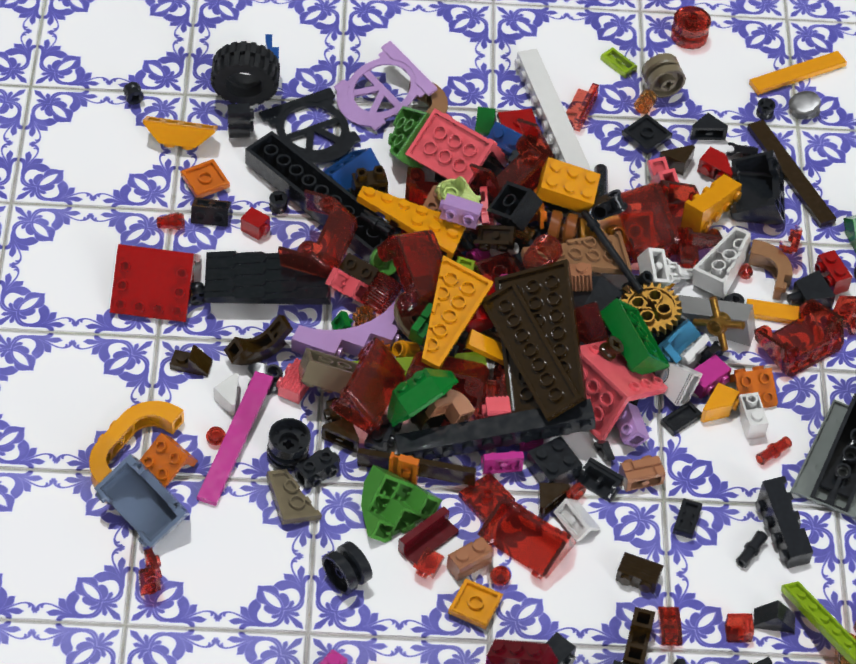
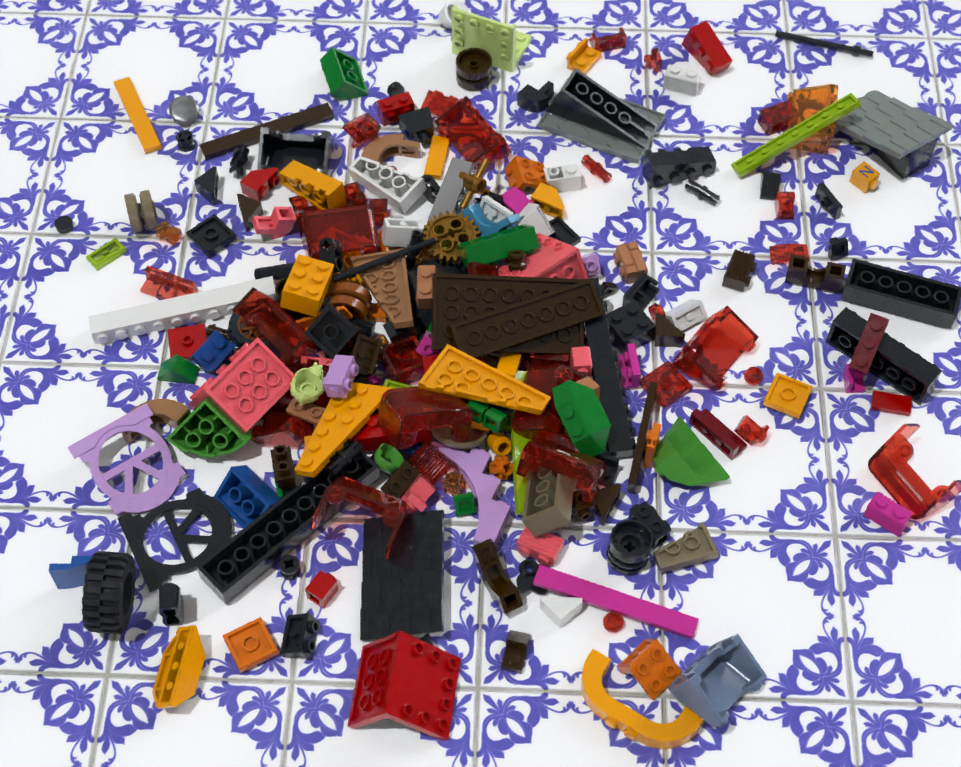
camera: 85 degrees left, 5 degrees up
(133, 93) = (107, 729): black wheel -> none
(150, 576) = (803, 668): clear red bracket -> none
(171, 221) = (314, 677): clear red cone -> none
(347, 567) = (773, 493): black wheel -> none
(469, 558) = (742, 396): nougat brick -> none
(531, 254) = (426, 298): clear red piece -> none
(651, 30) = (64, 224): none -> black tile
(687, 518) = (675, 234): black plate -> none
(690, 27) = (70, 188): clear red wheel -> none

